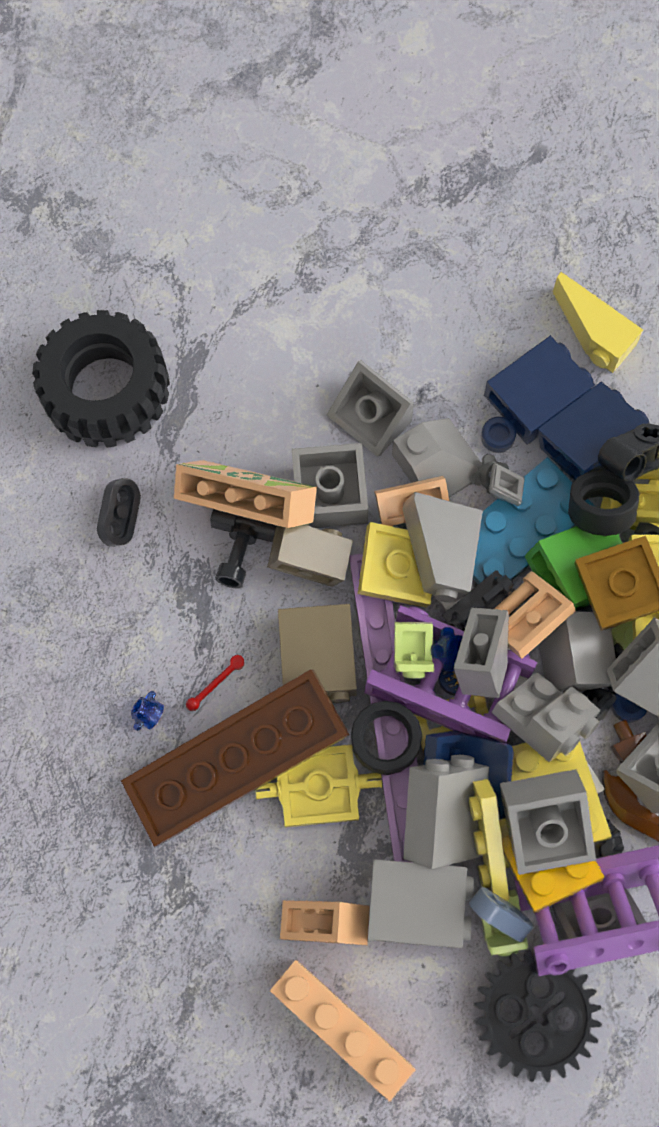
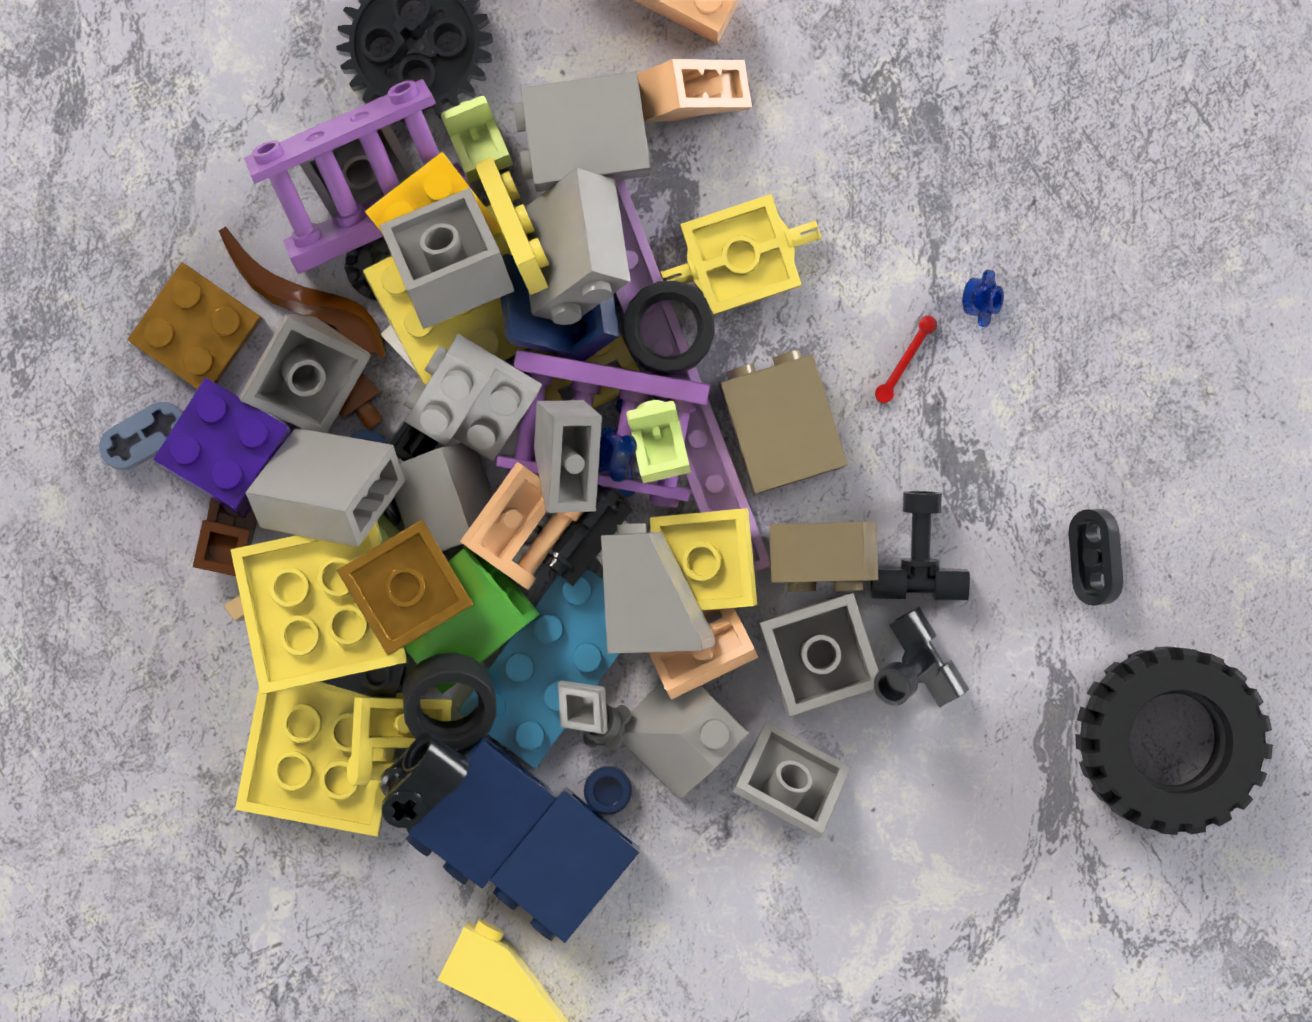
camera: 165 degrees right, 15 degrees up
(234, 758) = (853, 260): reddish brown plate -> none
(245, 493) = (930, 606): light nougat brick -> none
(280, 446) = (919, 665): none -> black bar
(501, 914) = (481, 140): sand blue beam -> none

